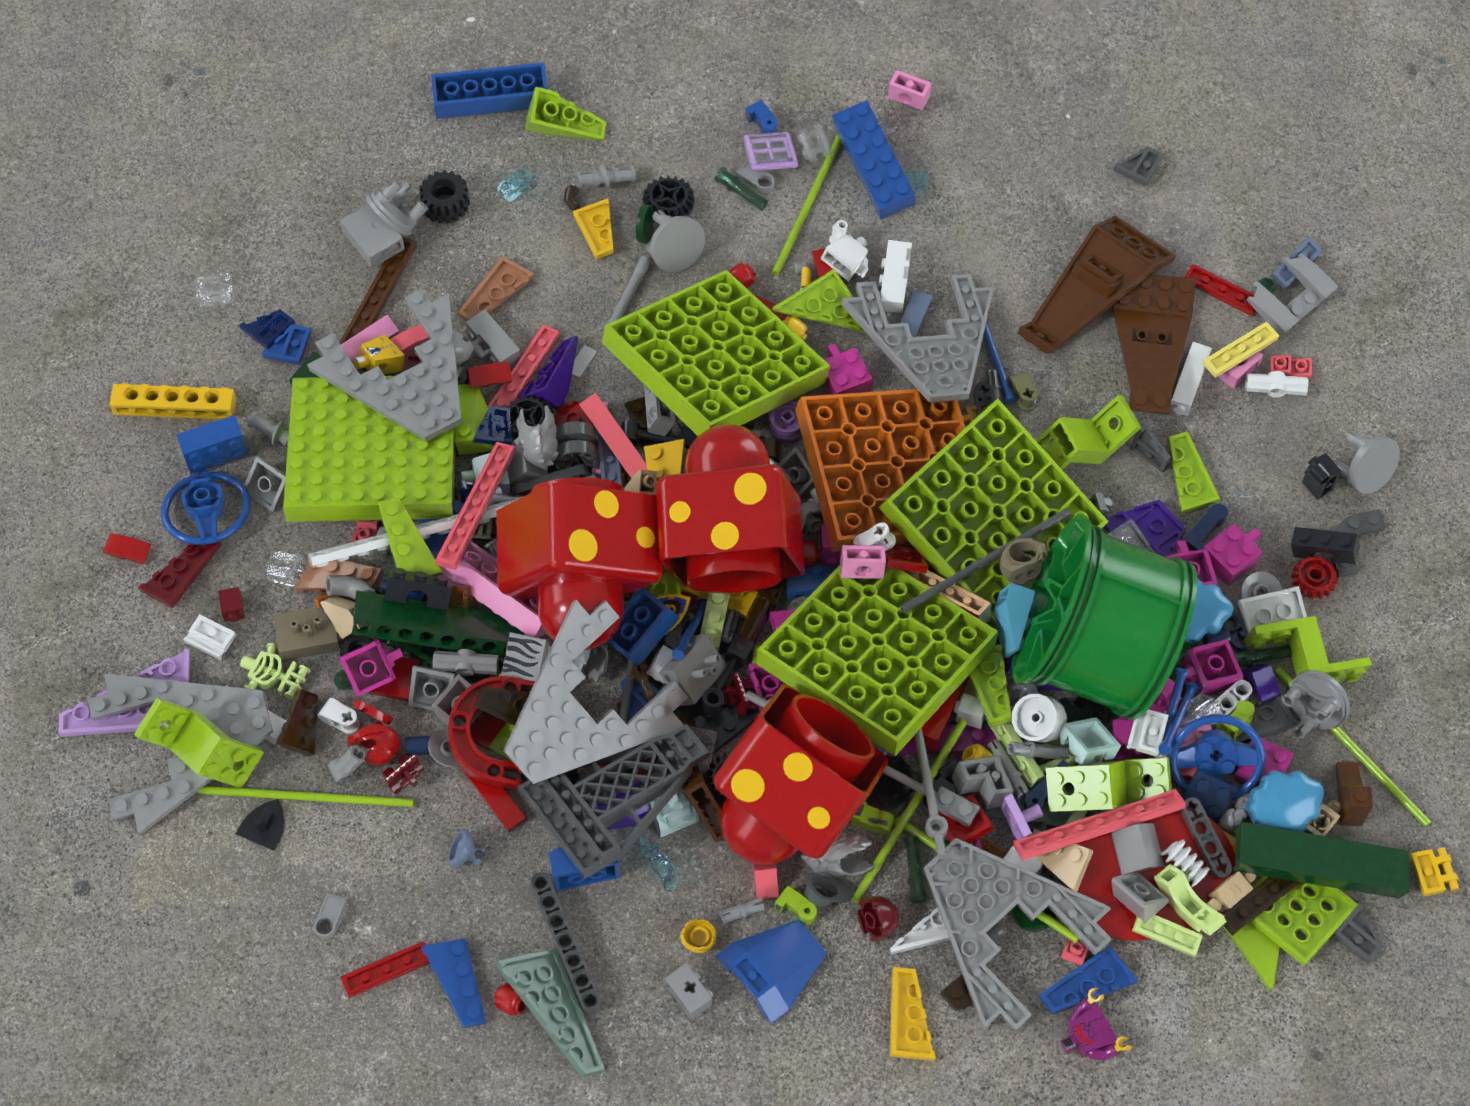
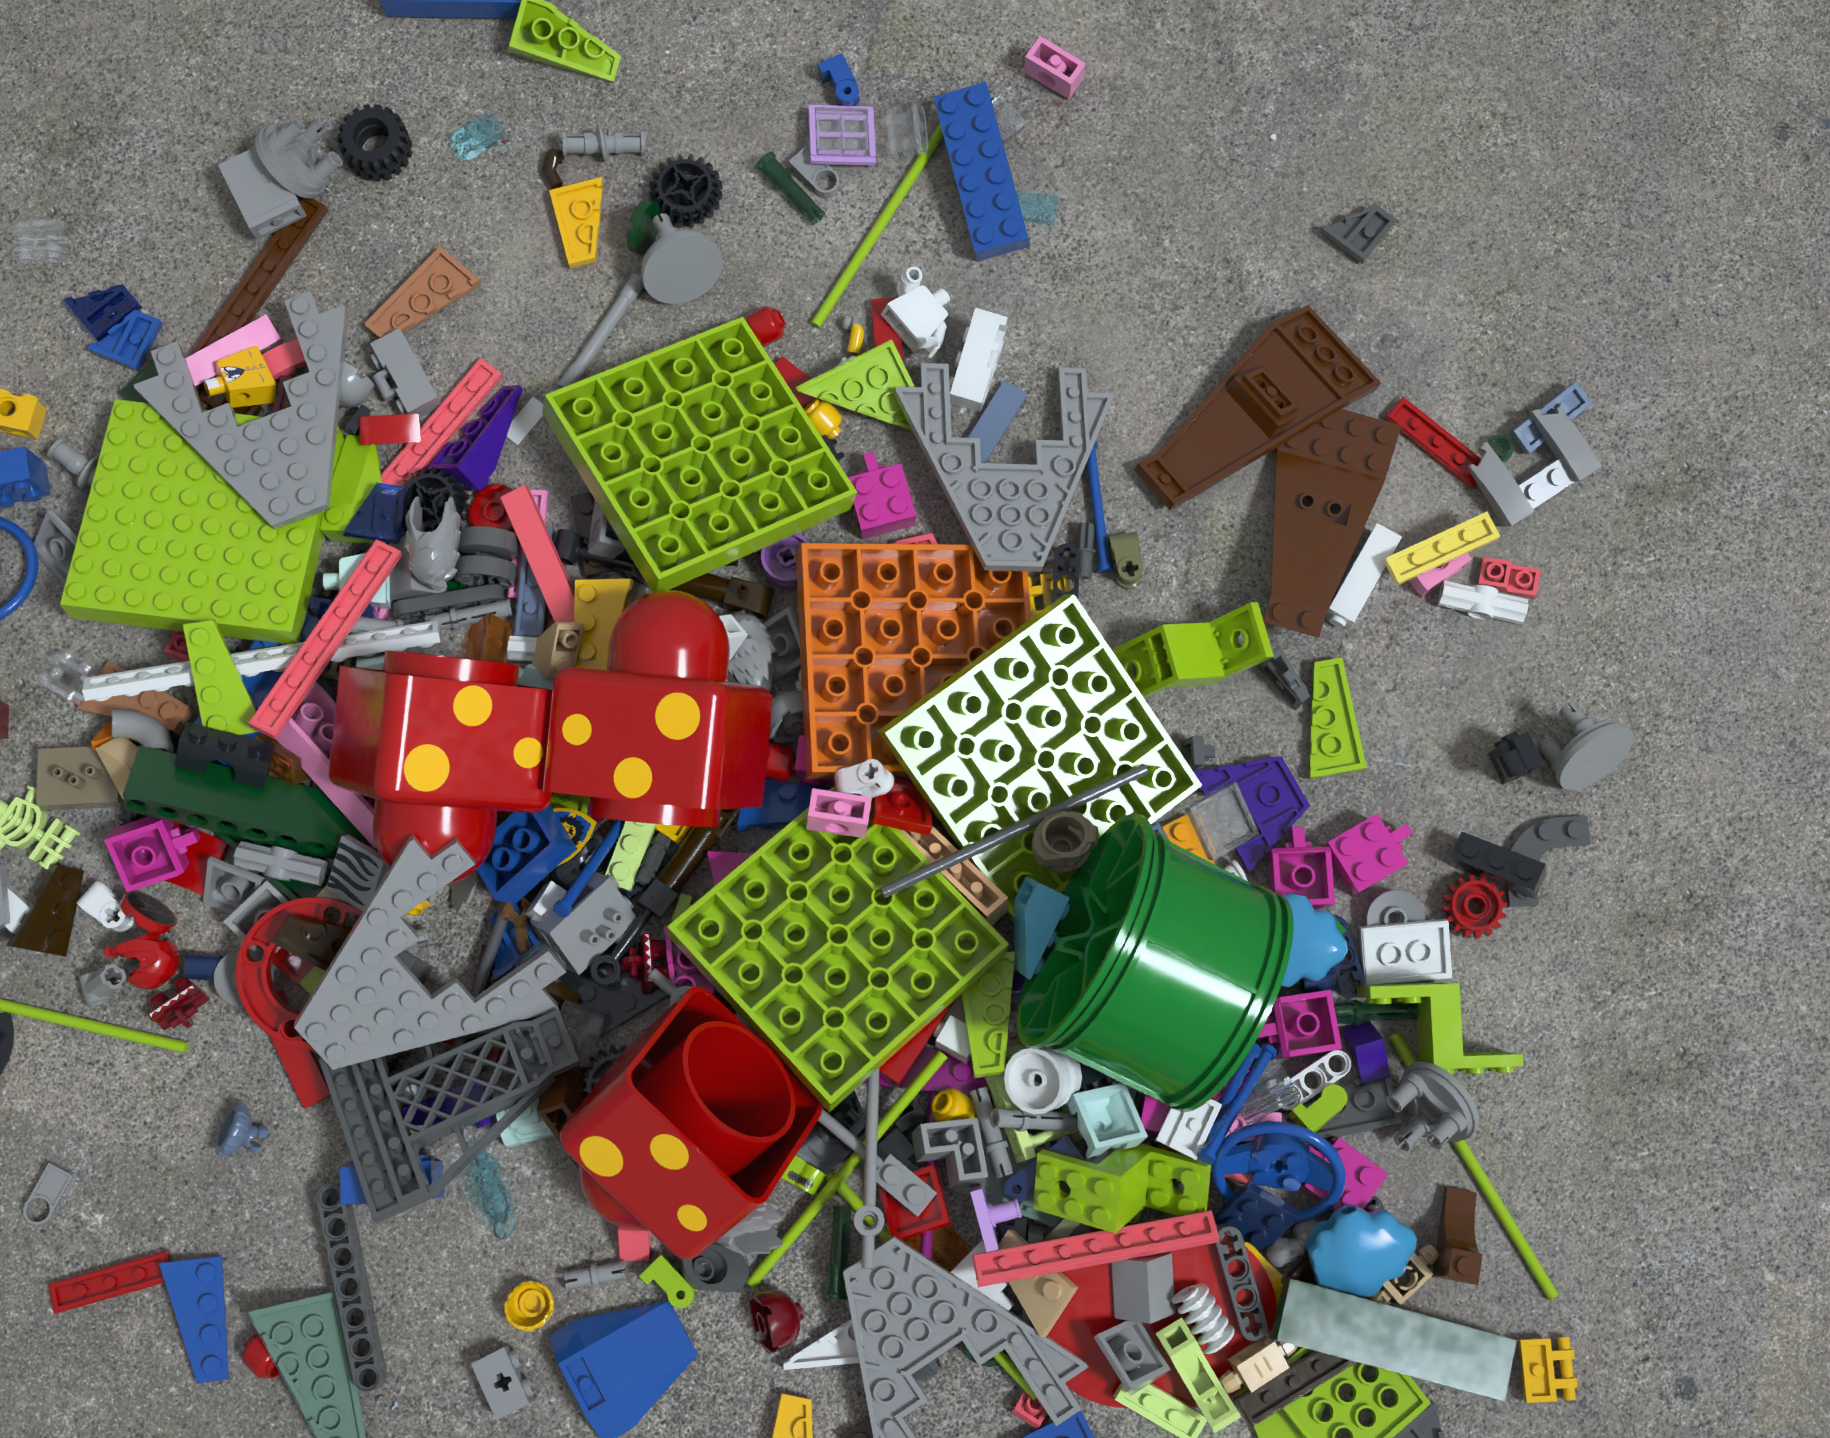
camera: 10 degrees right, 15 degrees up
(1214, 517) = (1353, 793): dark blue leg -> none

